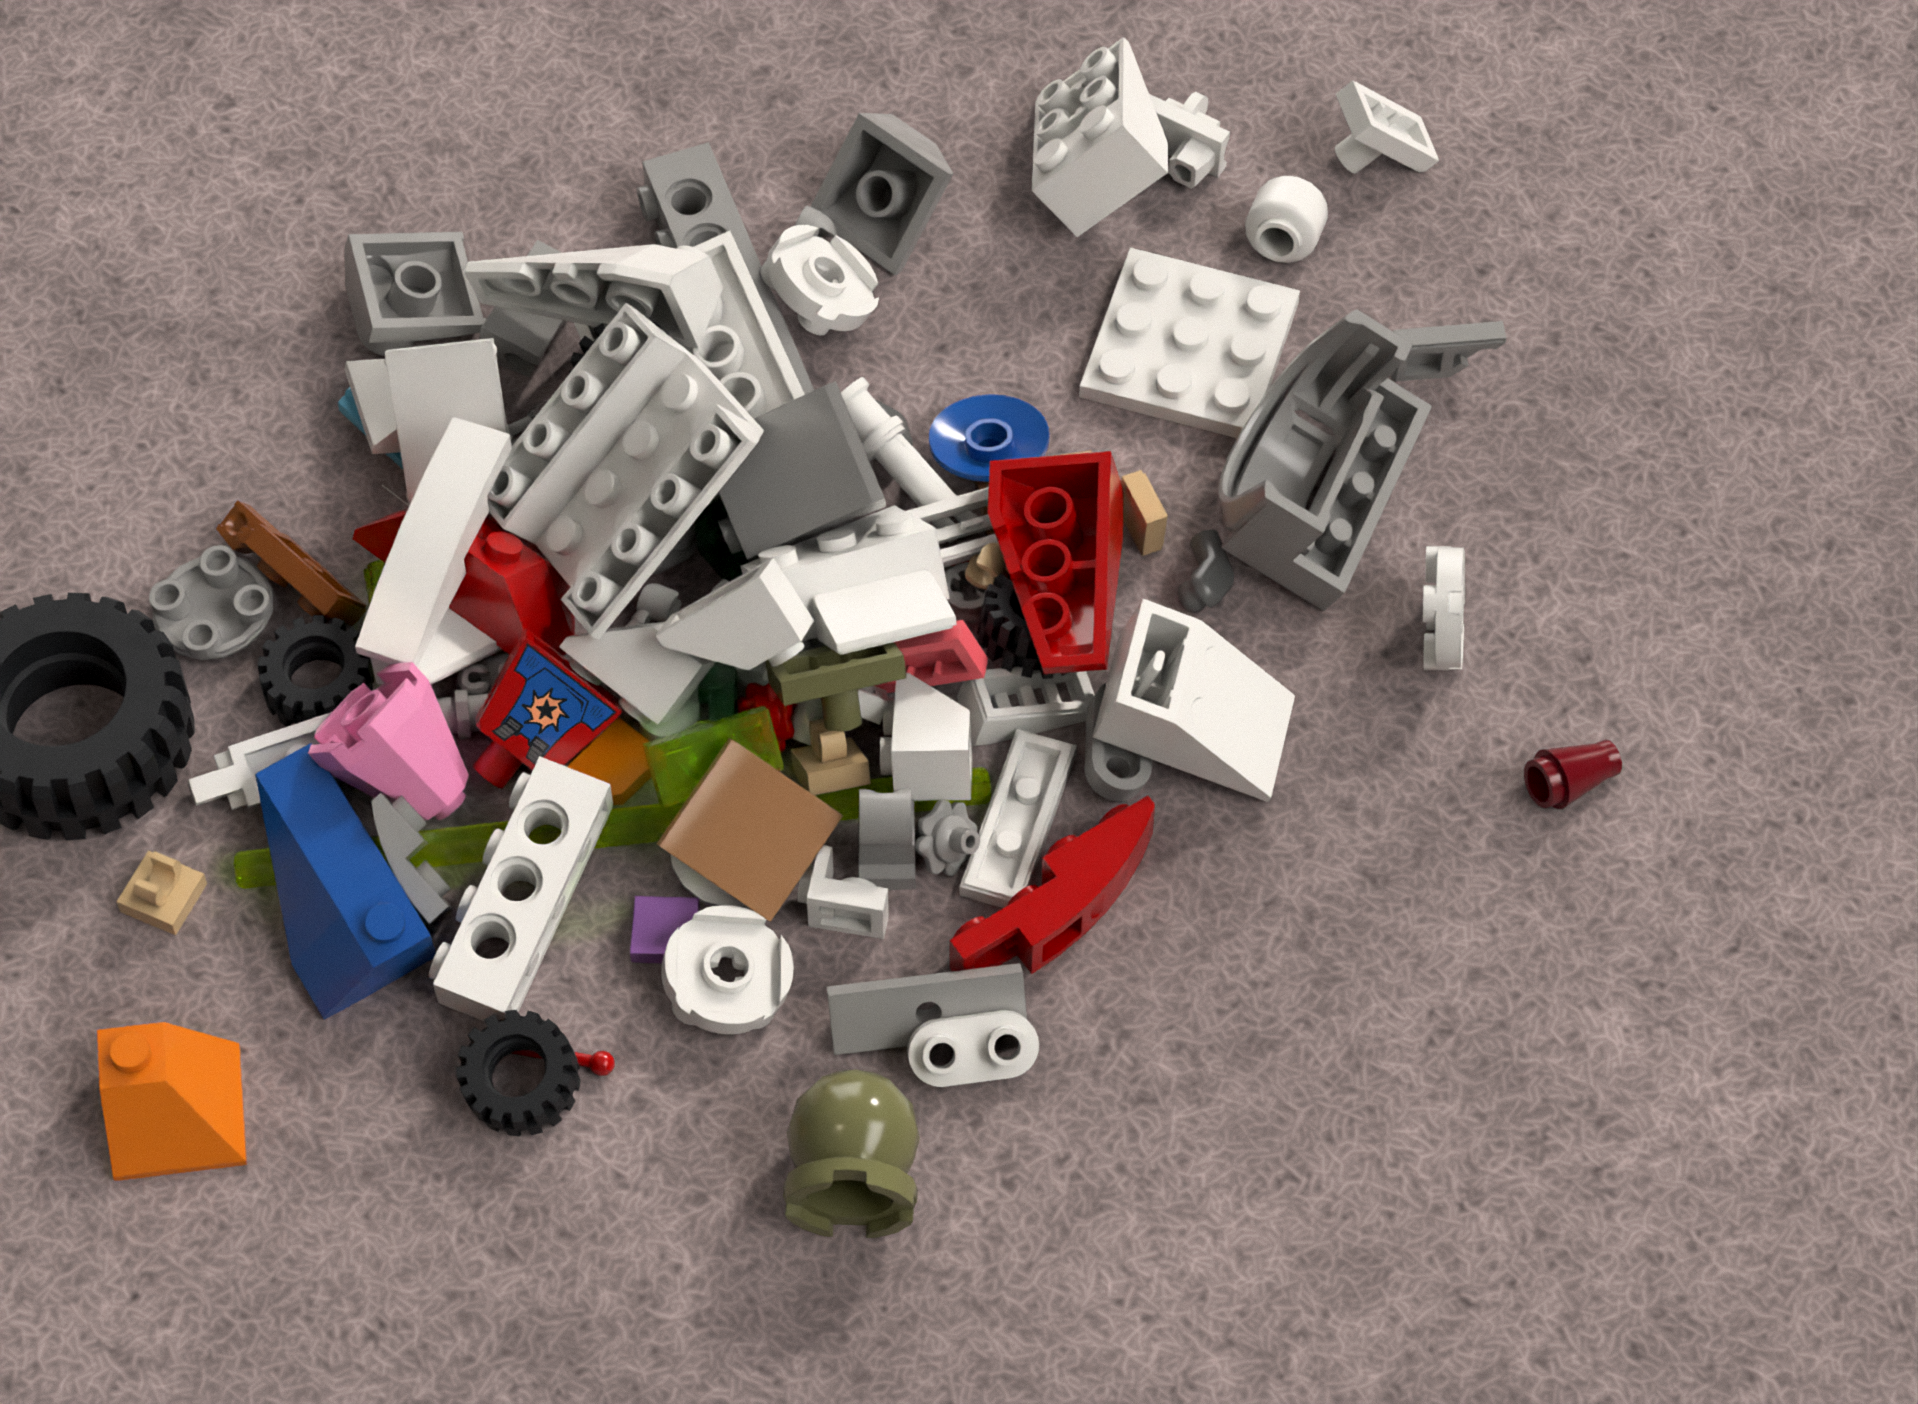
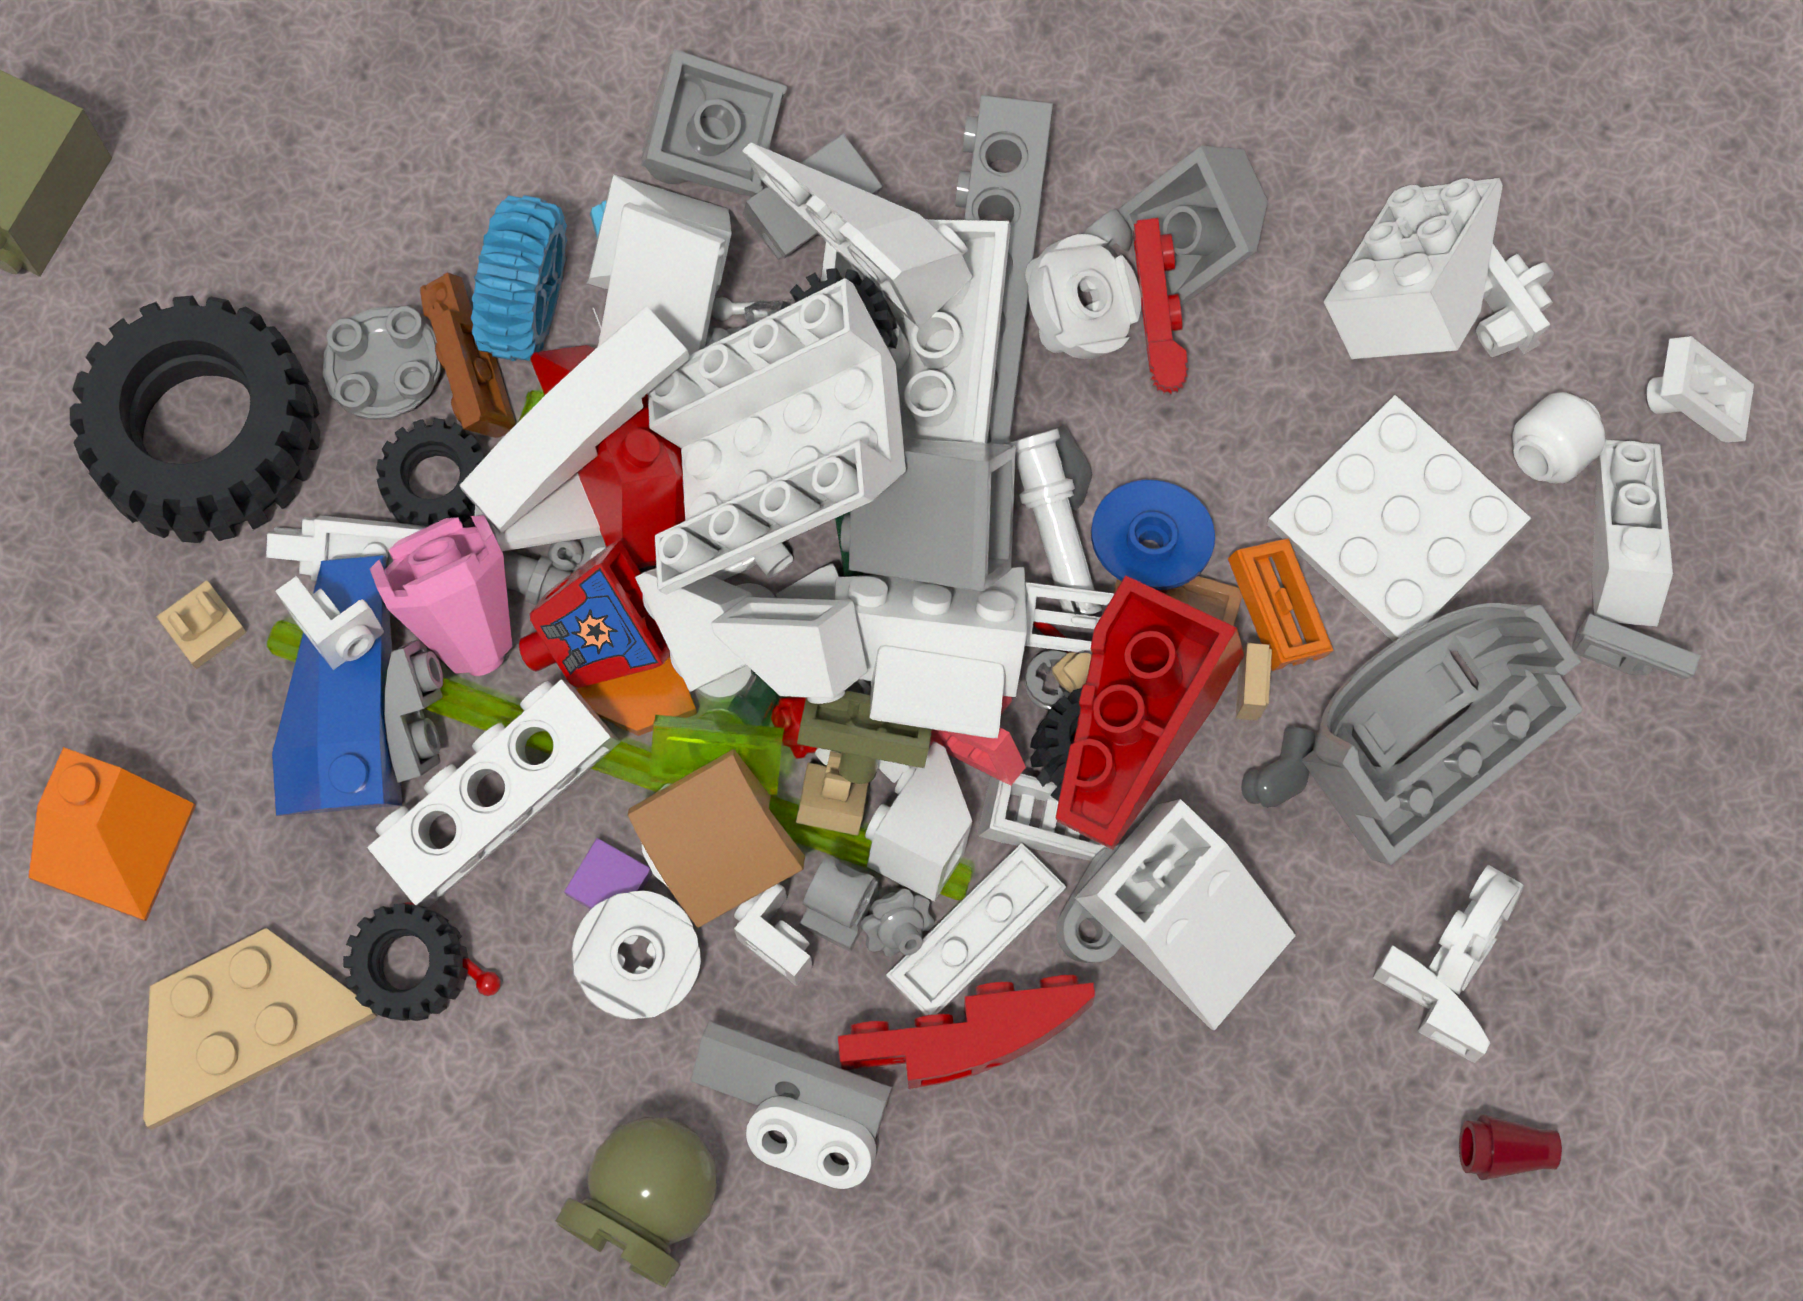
camera: 30 degrees right, 15 degrees up
(296, 813) = (333, 634): none -> white bracket
(310, 472) = (519, 277): none -> dark azure gear
(386, 1200) = (237, 1021): none -> tan wing
(894, 264) = (1159, 311): none -> red hinge
(1133, 444) = (1272, 605): none -> orange tile
(1390, 265) = (1630, 534): none -> white slope
(1464, 693) = (1448, 1017): none -> white slope

